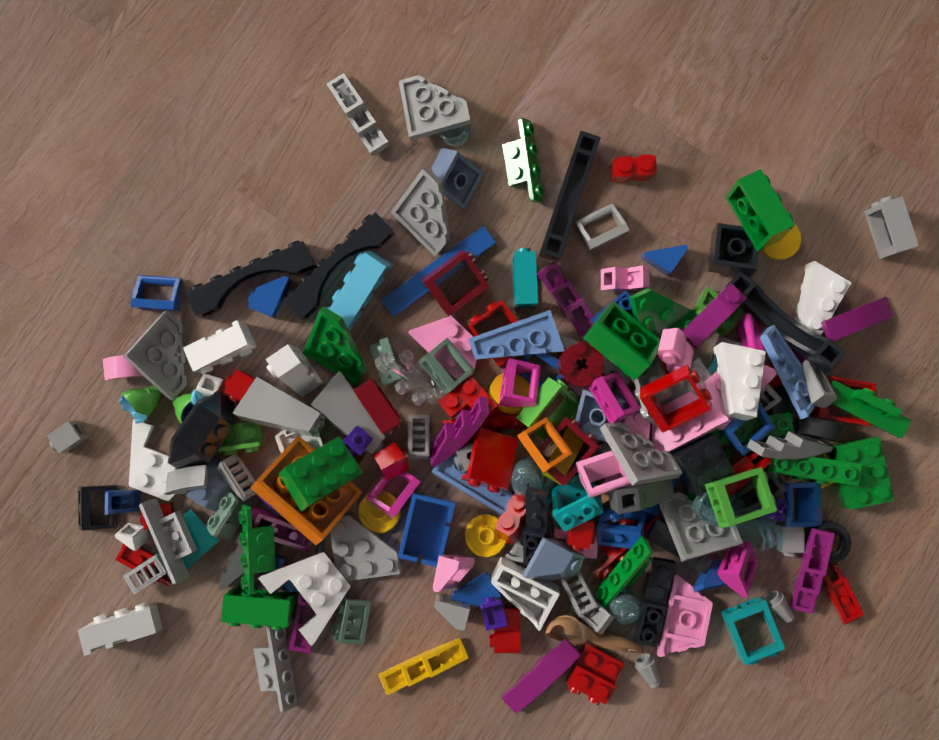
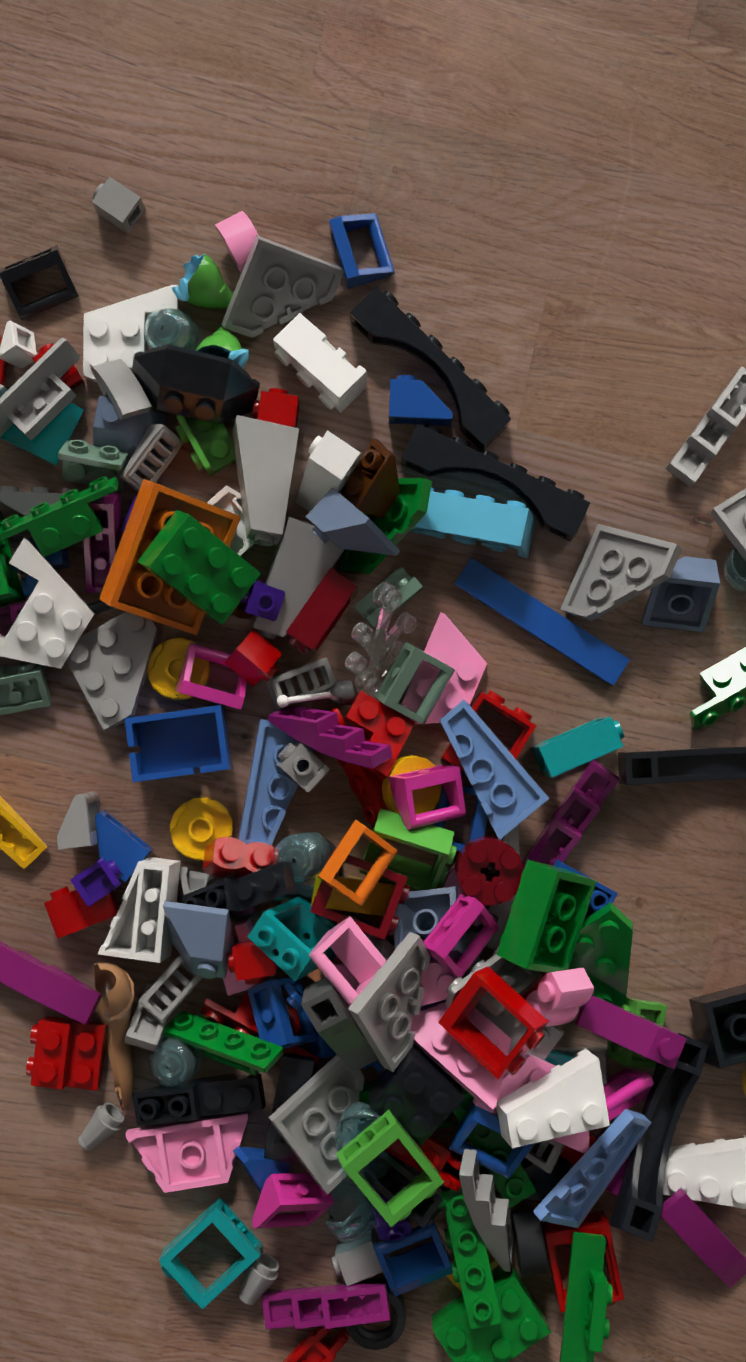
camera: 65 degrees right, 0 degrees up
(122, 501) = (59, 312): blue slope -> none
(164, 429) = (178, 329): none -> clear light blue helmet
(209, 385) = (263, 369): white slope -> none
(309, 342) = (374, 481): none -> reddish brown slope
(331, 370) = (347, 526): none -> sand blue slope
(434, 414) = (340, 693): none -> hinge
(451, 571) = (134, 800): bright pink tile -> none
(470, 260) = (559, 682): dark red window -> none
(491, 460) = (307, 796): red panel -> none
(606, 237) = (680, 837): light grey tile -> none
(621, 279) = (633, 886): bright pink brick -> none
(665, 259) = (682, 932): blue slope -> none
(818, 386) = (589, 1218): light grey slope -> none

